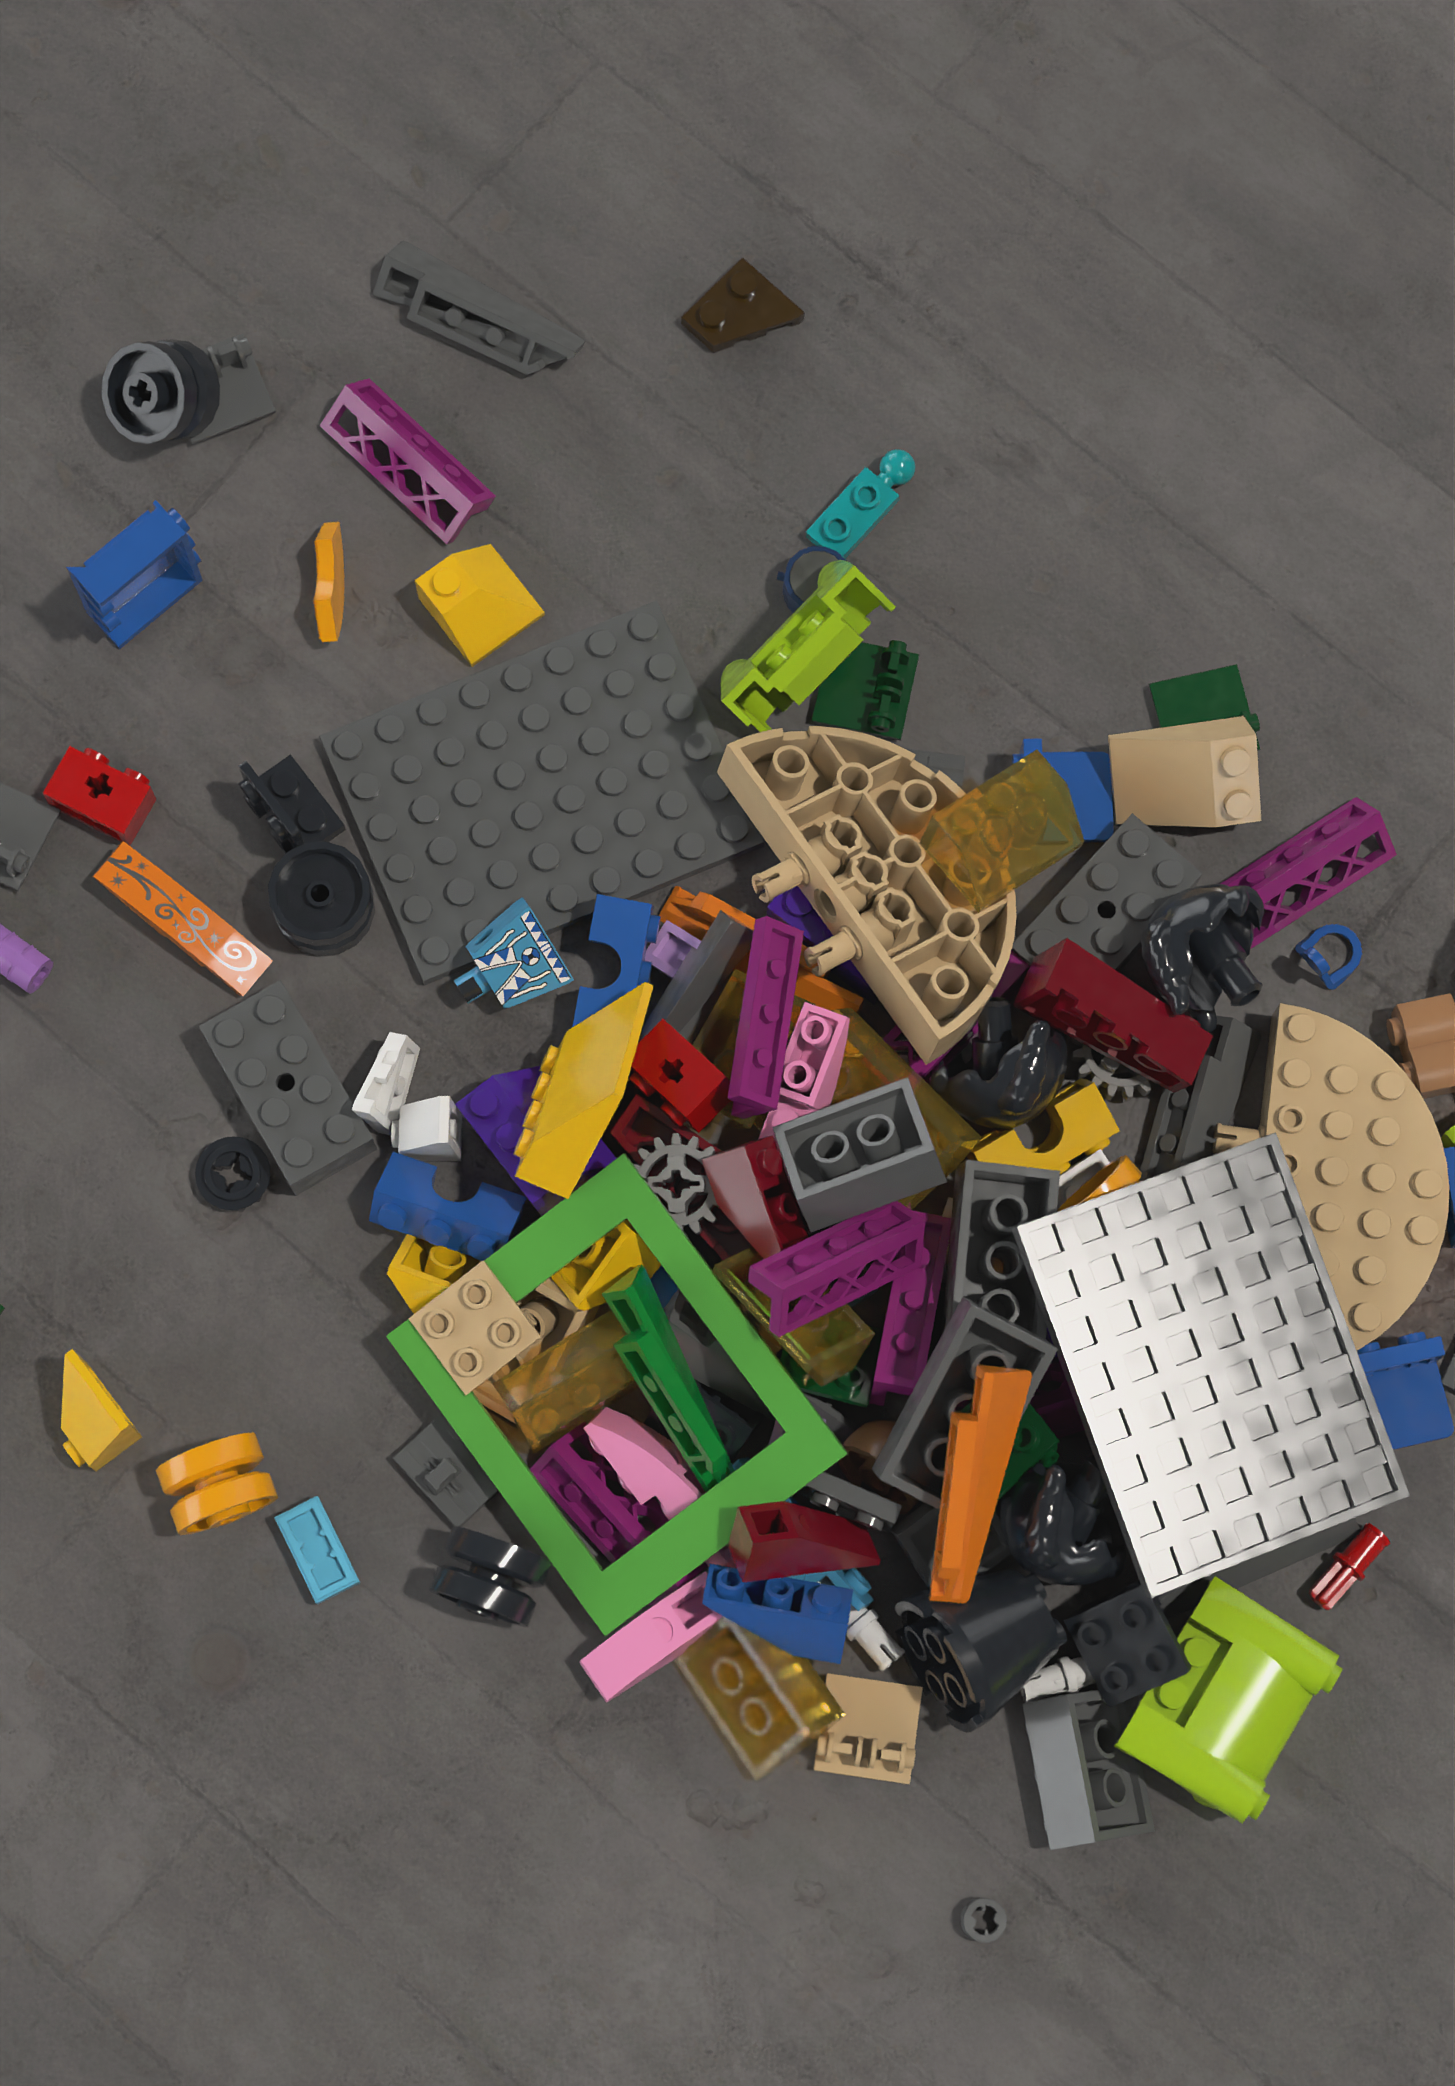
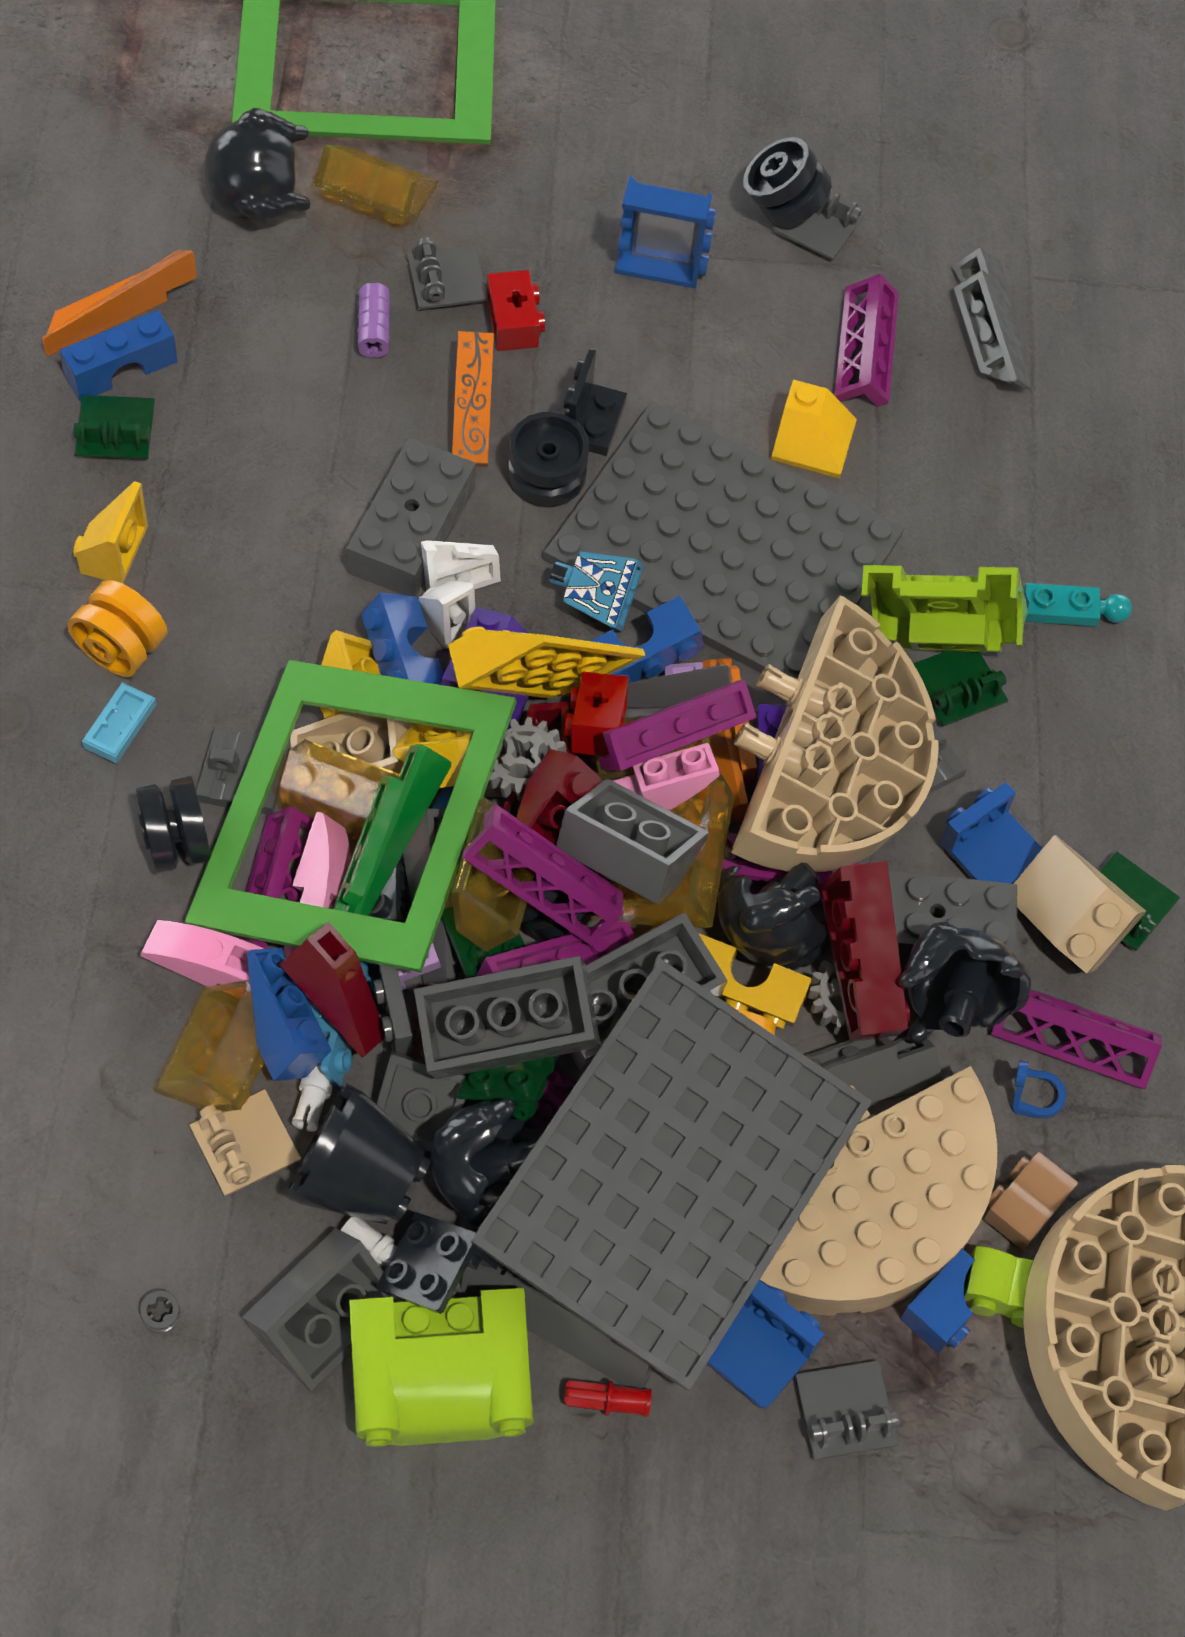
camera: 50 degrees right, 15 degrees down
(222, 1155) = (341, 515): black gear -> none
(330, 582) = (753, 347): light orange tile -> none
(475, 1327) = (333, 702): tan hinge -> none
(739, 309) = (1131, 459): dark brown wing -> none
(973, 1477) = (460, 1048): orange wedge -> none
(1004, 831) = (931, 795): clear yellow slope -> none

